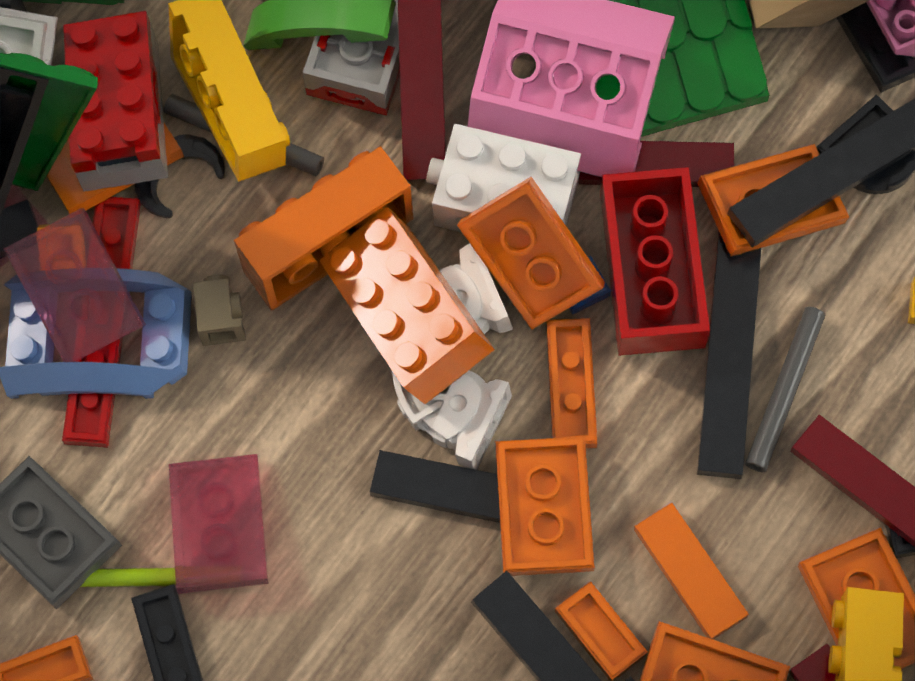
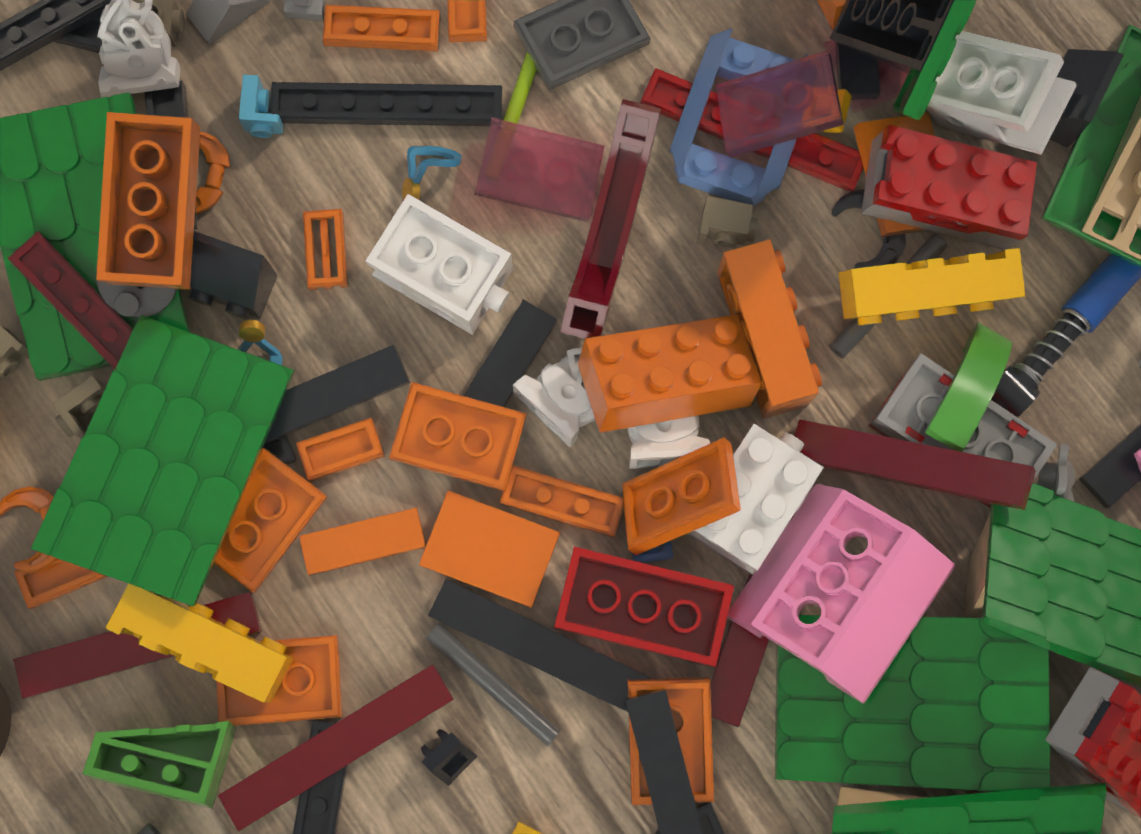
camera: 105 degrees right, 10 degrees up
(262, 426) = (612, 221): none -> dark red arch
(283, 655) = (411, 185): none -> dark azure piece
(365, 580) = (441, 265): none -> white torso
(649, 439) = (489, 549): none -> orange tile
(877, 403) = (448, 758): none -> black tile

